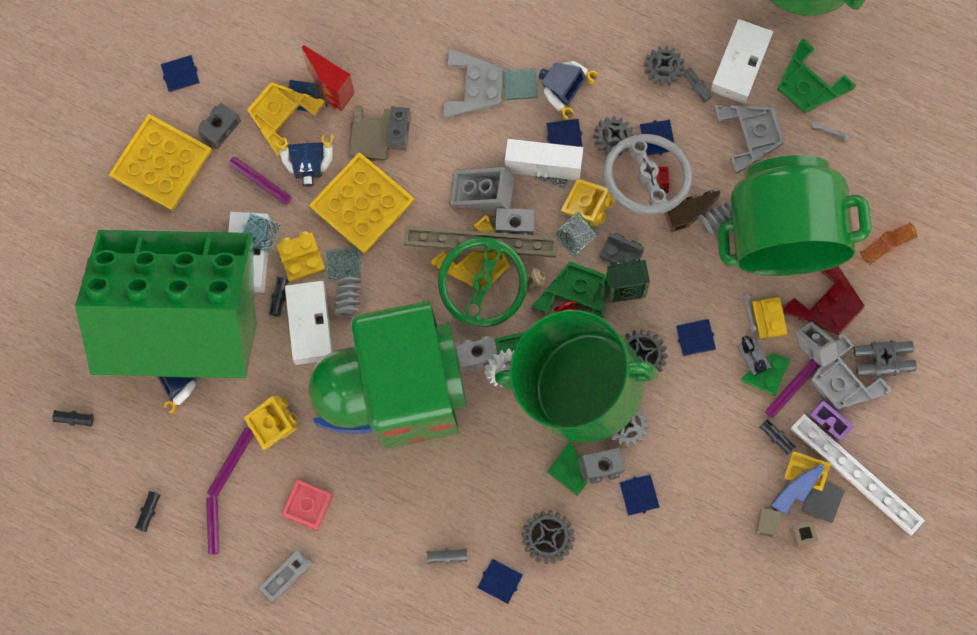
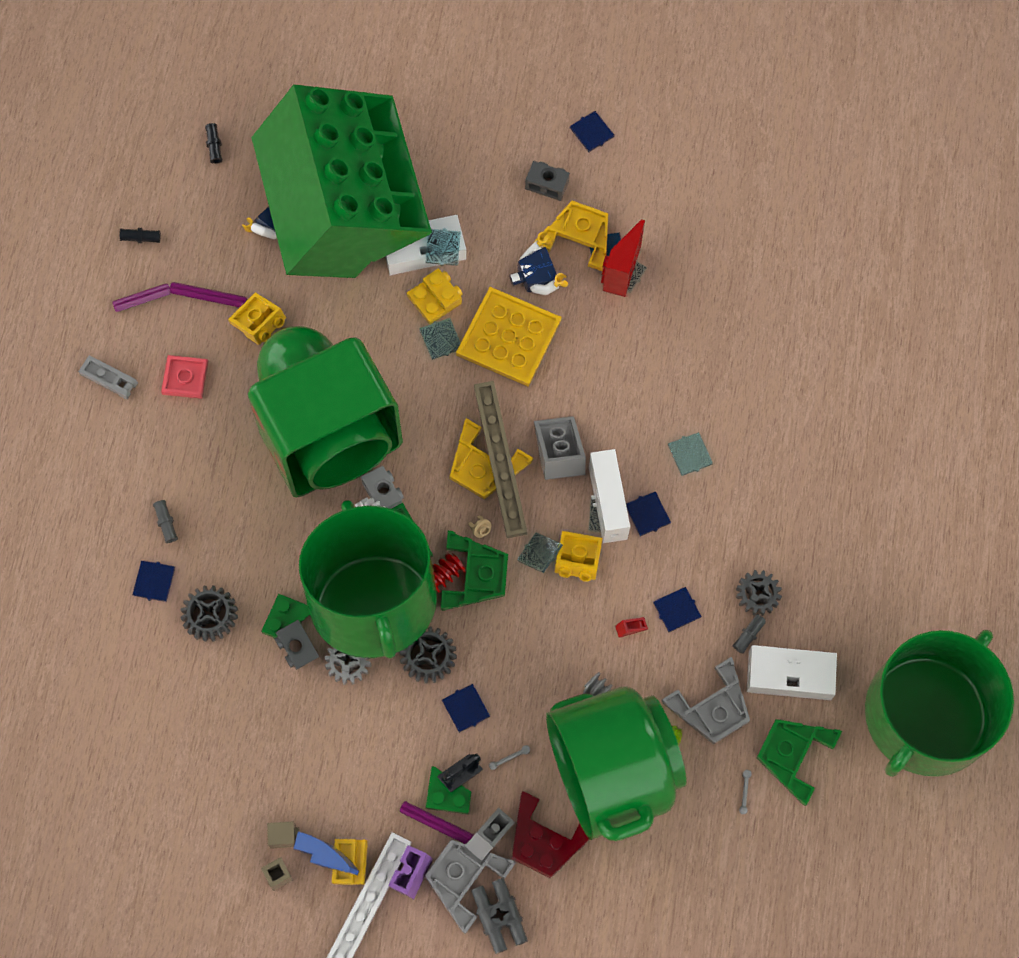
camera: 65 degrees right, 5 degrees down
(160, 162) = (492, 141): yellow plate -> none
(260, 180) = (503, 236): magenta axle -> none
(278, 297) = (387, 287): black pin -> none
(308, 322) = (370, 319): white brick -> none
(346, 296) = (405, 350): light grey piece -> none
(369, 135) = (585, 324): dark tan flag -> none
(398, 128) = (599, 347): dark grey brick -> none
(482, 85) = (673, 416): light grey wing -> none
(490, 244) = (465, 471): green piece -> none
(524, 216) = (534, 477): light grey brick -> none
(563, 83) = (703, 493): dark blue torso -> none
(611, 128) = (653, 556): dark grey gear -> none
(621, 250) = (534, 606): dark grey bracket -> none
(627, 280) = (498, 612): clear green brick -> none
(639, 495) = (279, 695): clear blue piece -> none
(647, 174) = (657, 580): light grey piece -> none
(688, 210) = (598, 658): dark brown slope -> none
(769, 318) = (509, 779): yellow plate -> none
(777, 437) = (379, 821): black pin -> none
(823, 503) = (320, 891): dark grey piece -> none
(879, 248) = (644, 897): clear orange piece -> none

